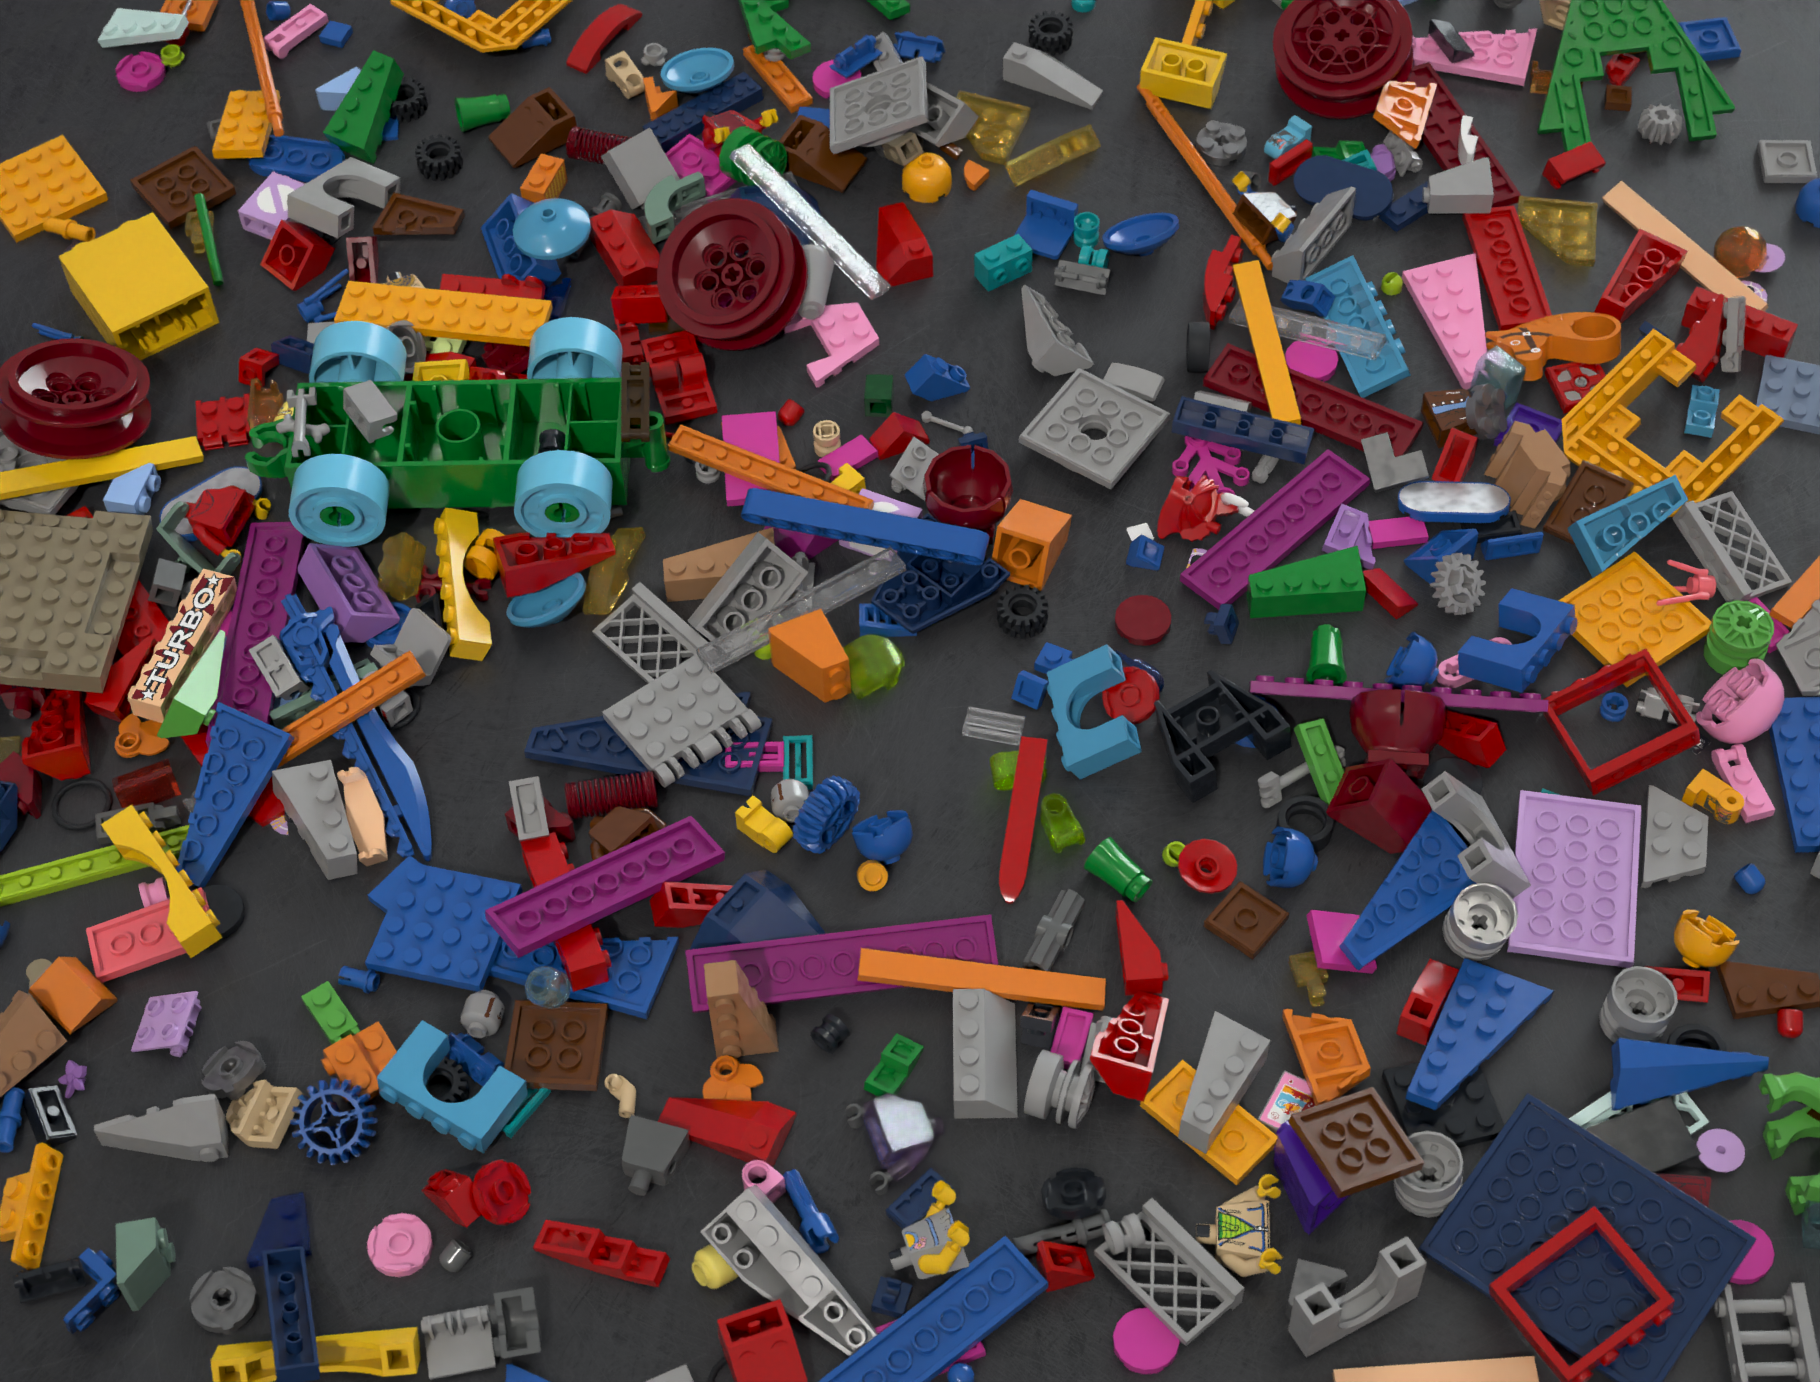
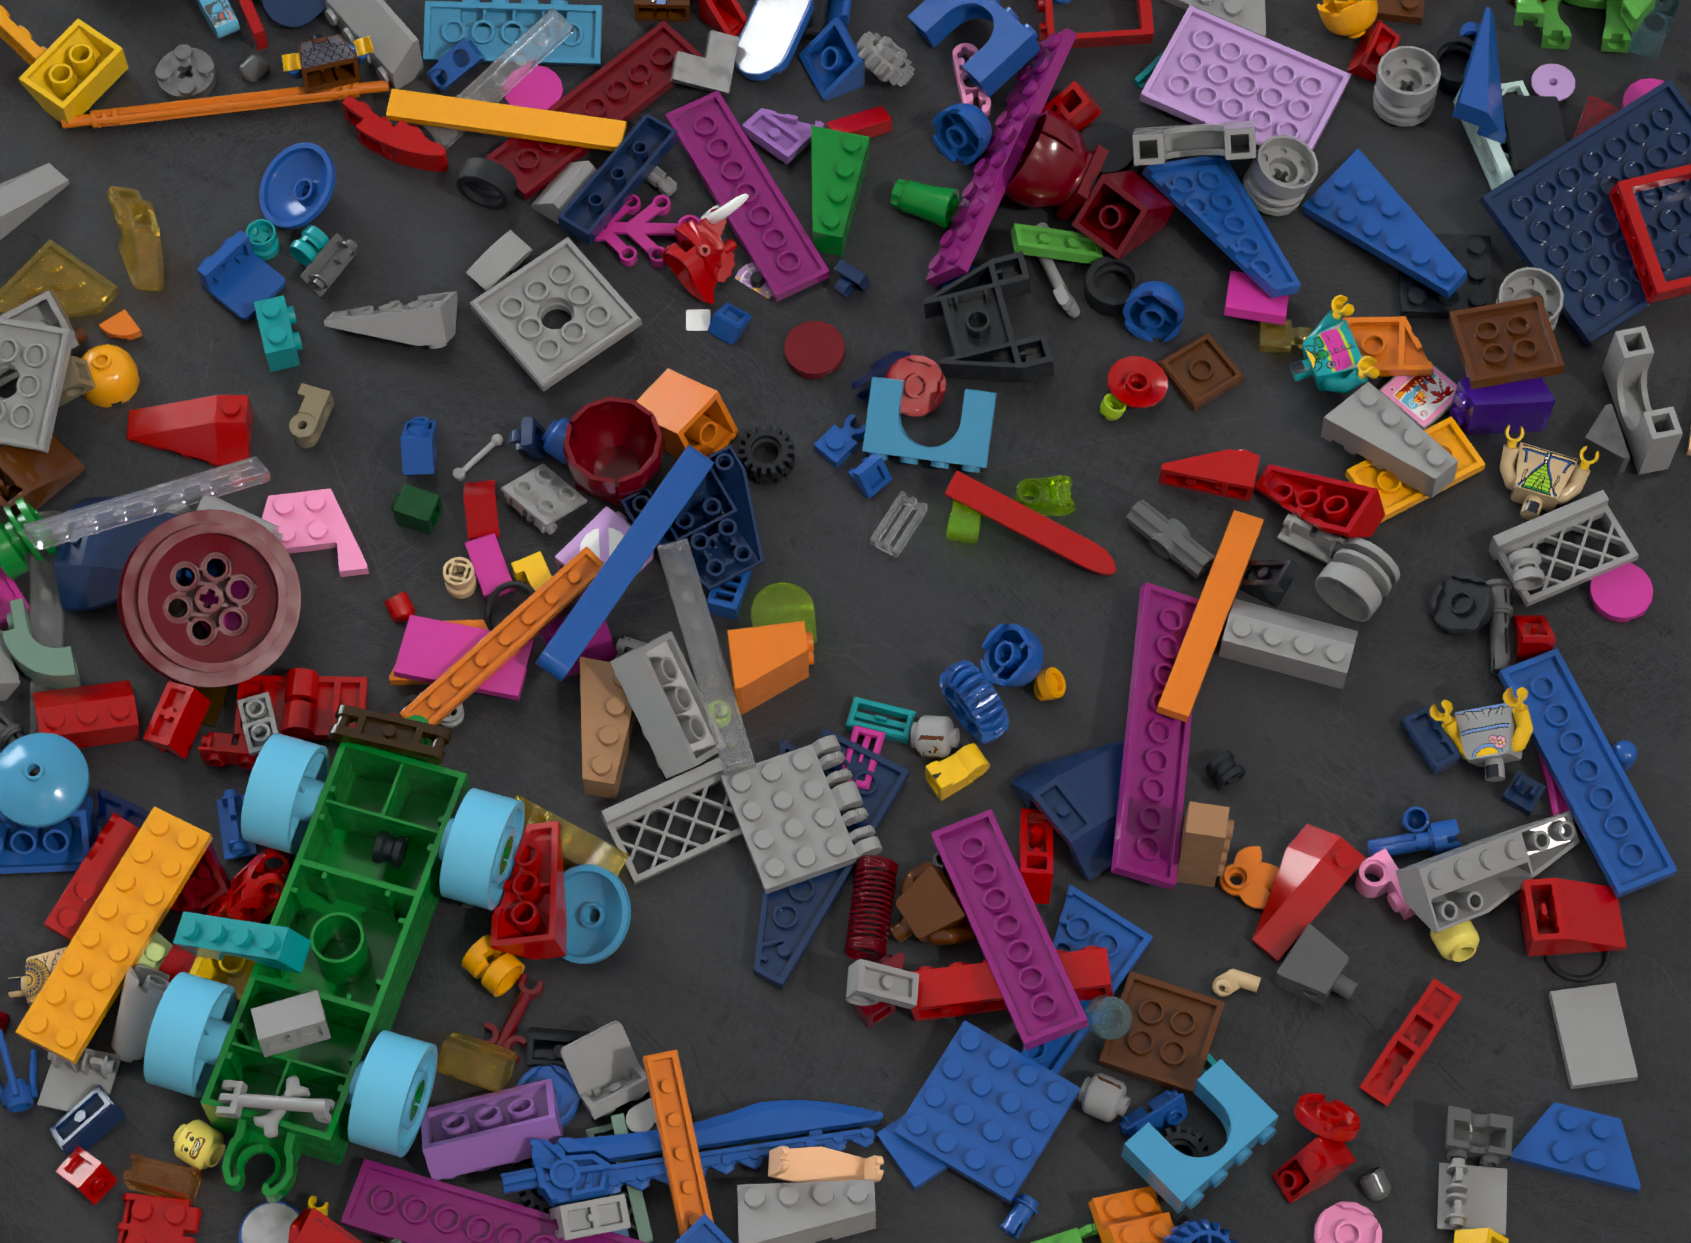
camera: 75 degrees left, 10 degrees up
(426, 372) = (263, 943): none -> teal arch
(465, 623) = (461, 994): yellow arch -> none
(650, 349) = (257, 720): none -> light grey slope
(828, 1202) = (1415, 819): none -> blue piece
(894, 1066) = (1275, 726): green slope -> none
(898, 1134) = (1360, 736): torso -> none
(938, 306) = (312, 416): none -> dark tan leg
(1072, 1034) = (1277, 549): dark pink tile -> none
(1118, 870) = (1117, 460): green plant -> none
(1298, 1012) = (1333, 354): none -> torso
(1397, 532) = (788, 90): dark pink tile -> none
(1426, 1001) = (1343, 248): red slope -> none

